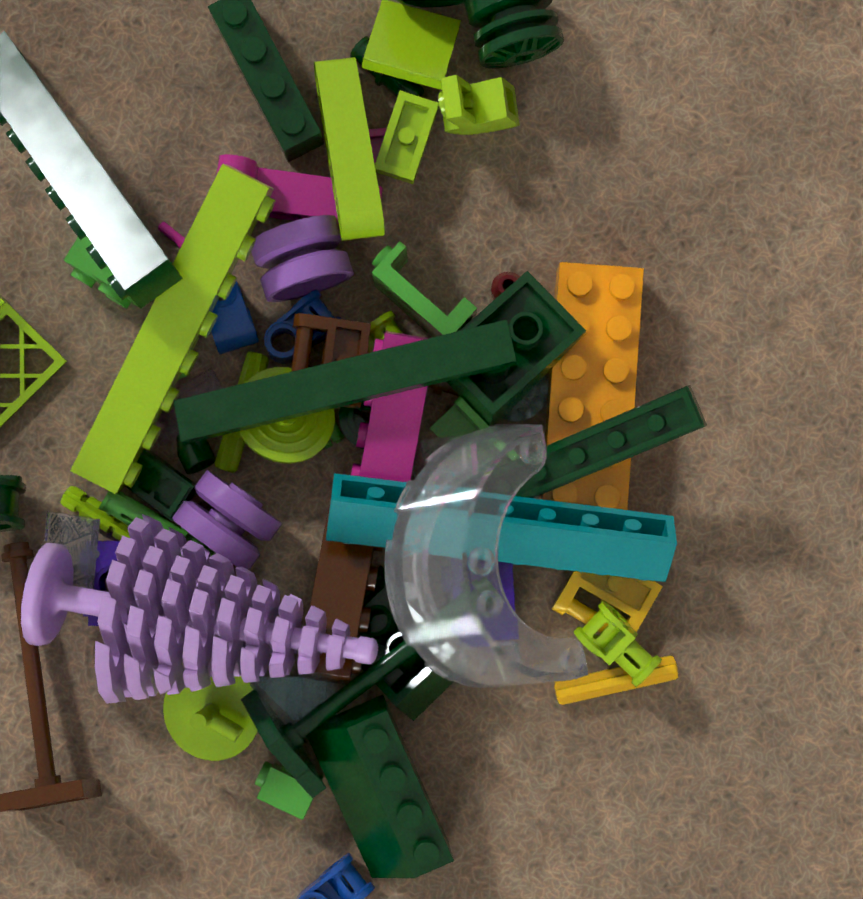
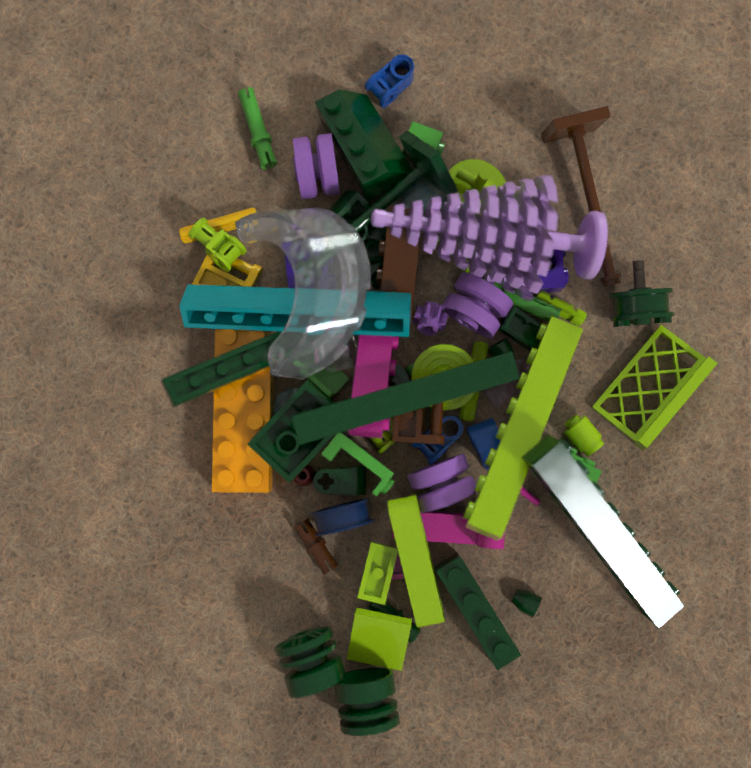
camera: 170 degrees right, 0 degrees up
(80, 538) = (572, 287): clear piece -> none
(84, 319) = (583, 434): none -> lime brick
(191, 83) = (526, 602): none -> dark green hose
(300, 509) = (430, 318): none -> medium lavender gear
(443, 274) = (346, 481): none -> dark green piece
(453, 219) = (342, 517): none -> dark blue wheel
(458, 756) = (315, 166): none -> medium lavender wheel
(477, 106) = (331, 598): lime brick -> none
(495, 184) = (316, 546): none -> reddish brown pin
(548, 833) = (260, 138): none -> bright green pin

